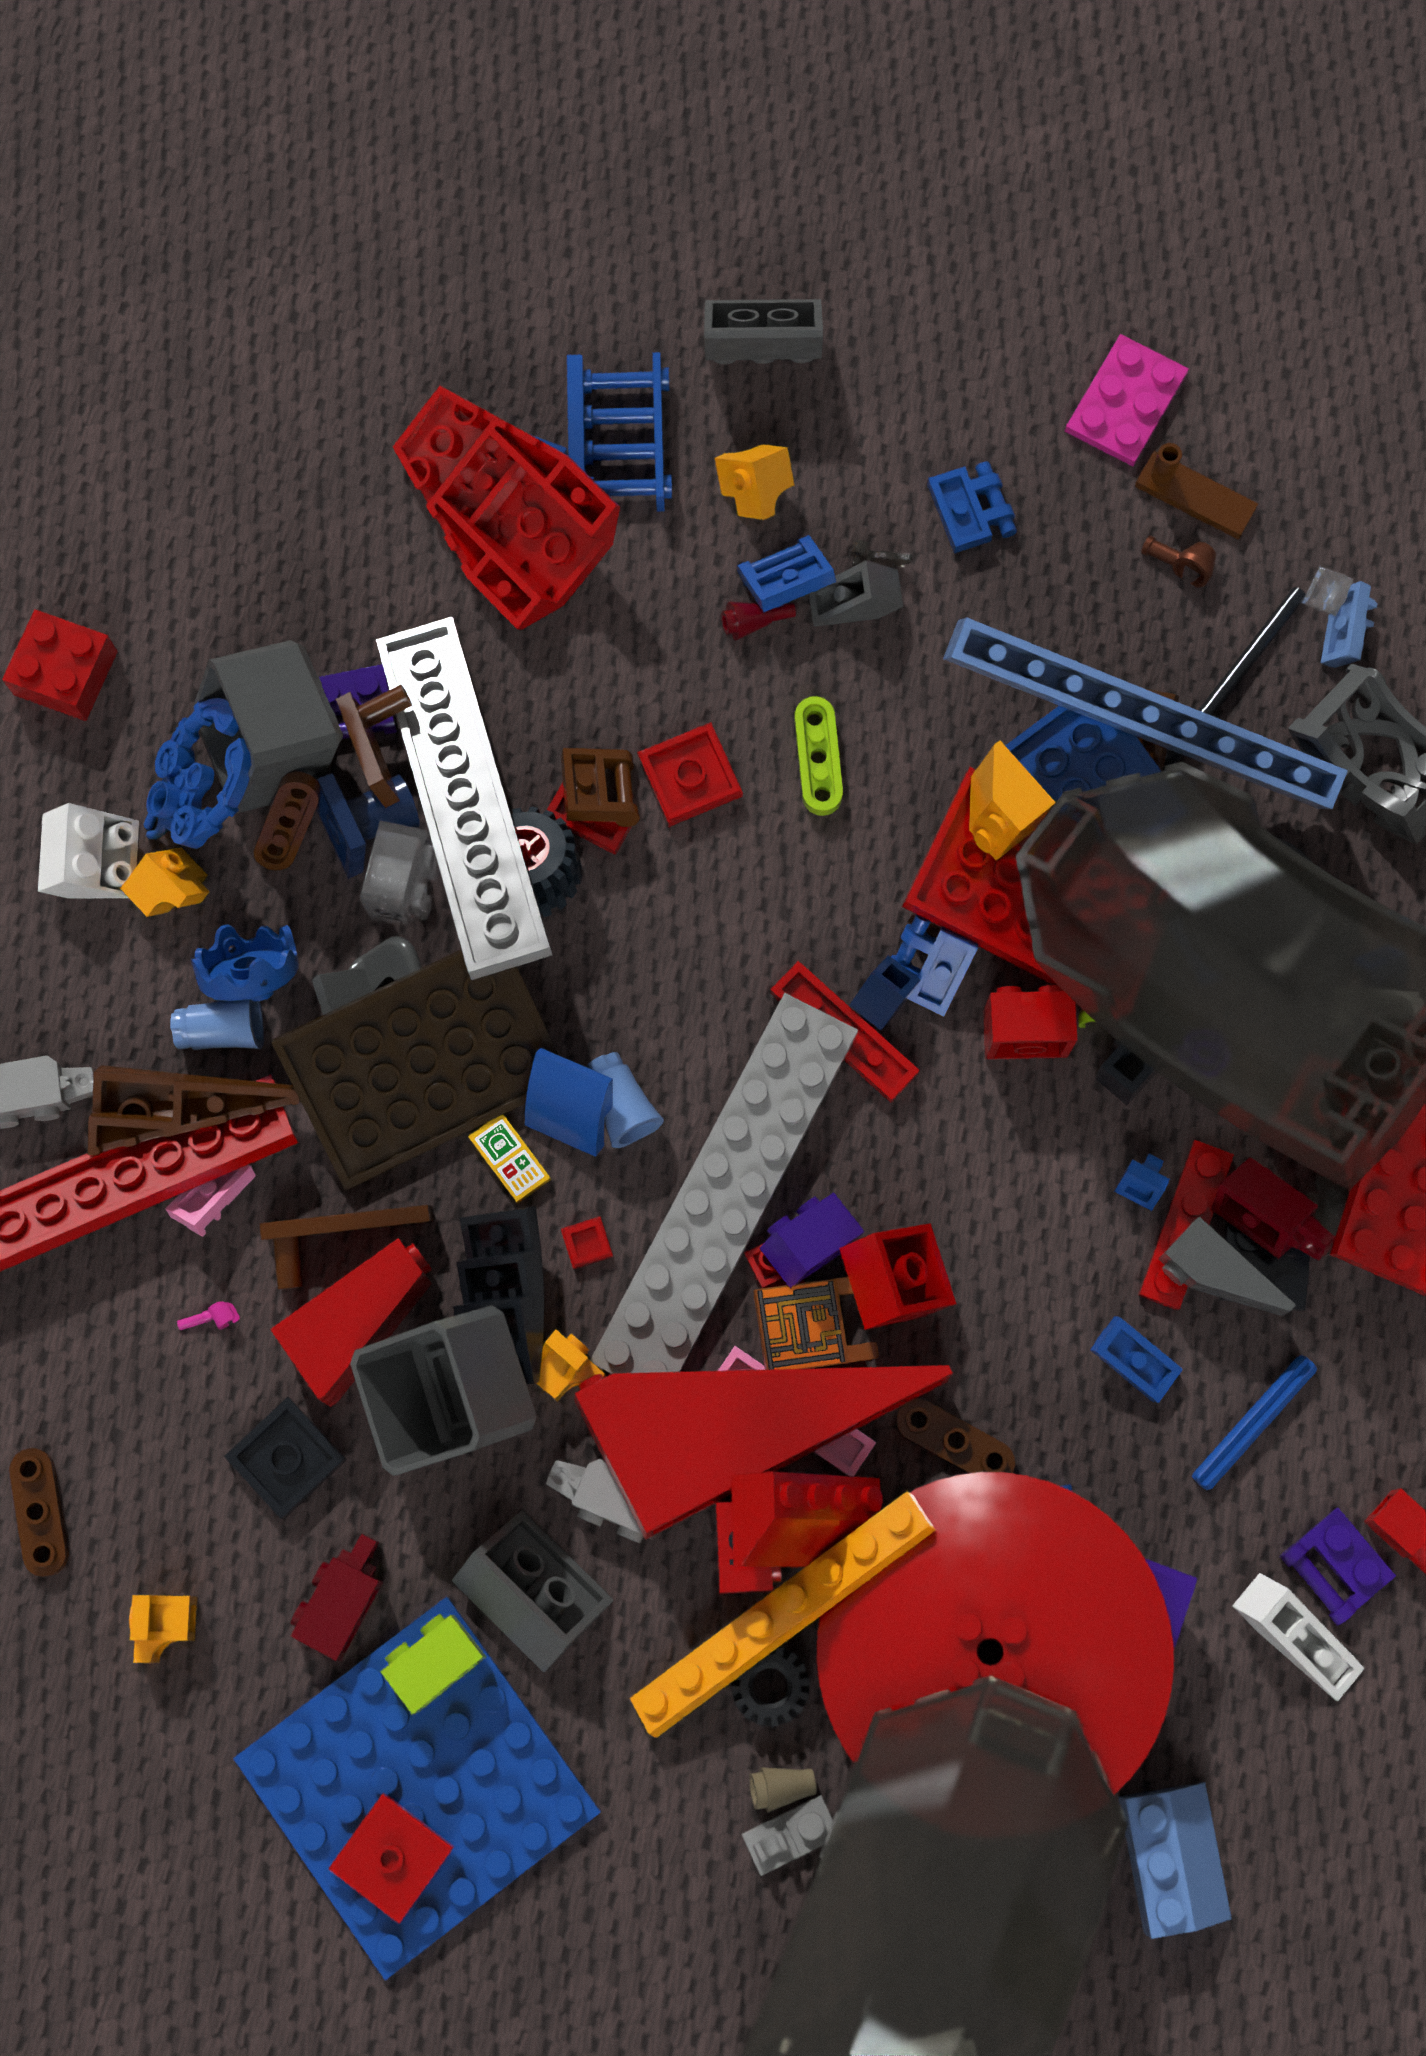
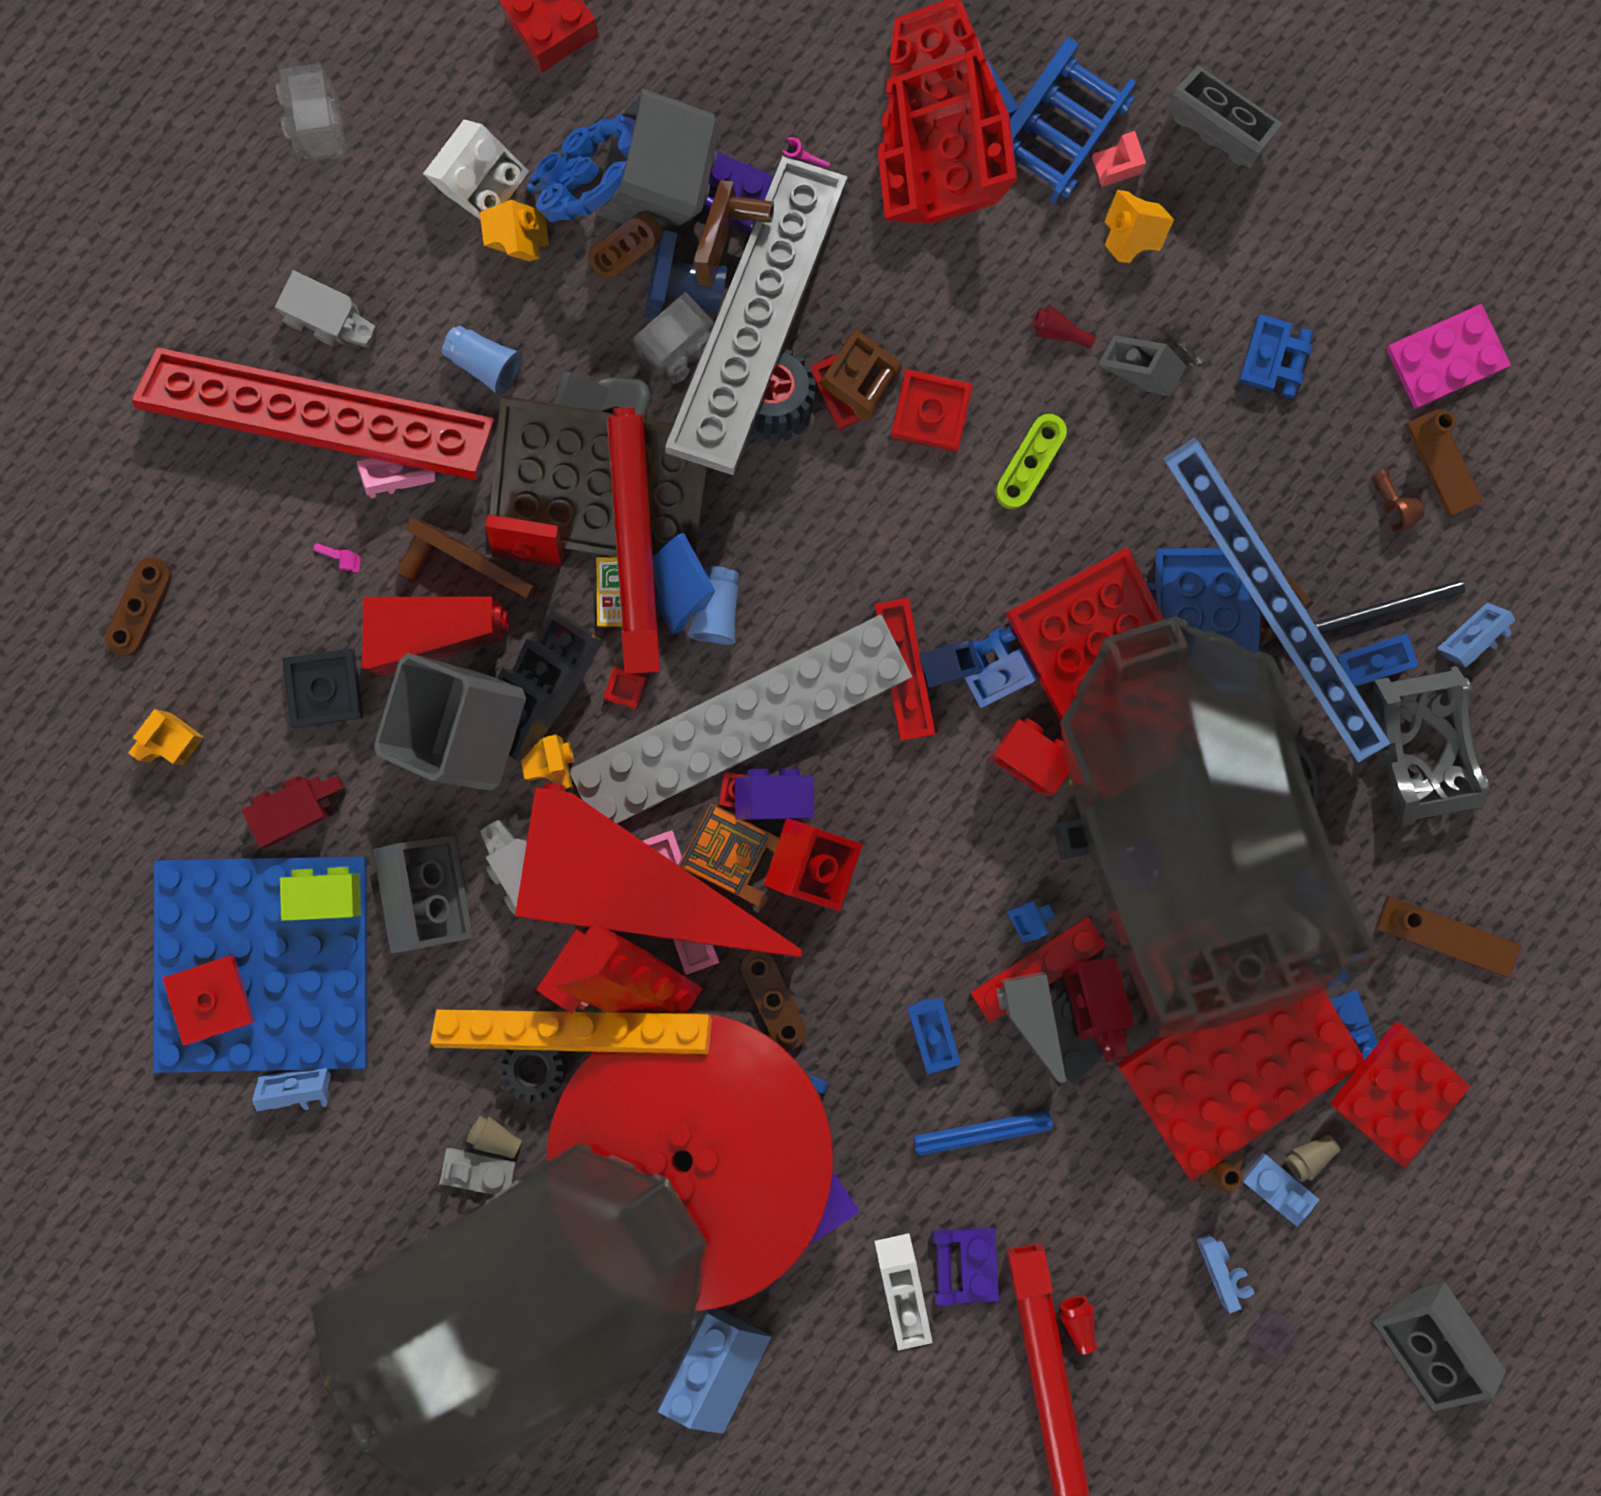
camera: 30 degrees right, 10 degrees up
(153, 1104) = (396, 380): reddish brown wedge -> none
(249, 968) = (525, 332): blue plate -> none
(388, 1167) = (524, 540): none -> red plate
(394, 627) = (804, 156): none -> dark pink hand
(499, 1091) = (633, 541): none -> red brick
(540, 1887) = (291, 1088): none -> medium blue plate
(697, 432) = (1119, 161): none -> coral panel
(787, 574) = (1105, 313): blue plate -> none
(1004, 802) = (1129, 592): light orange slope -> none
(1279, 705) = (1378, 660): none -> blue plate
(1328, 591) = (1482, 601): clear plate -> none

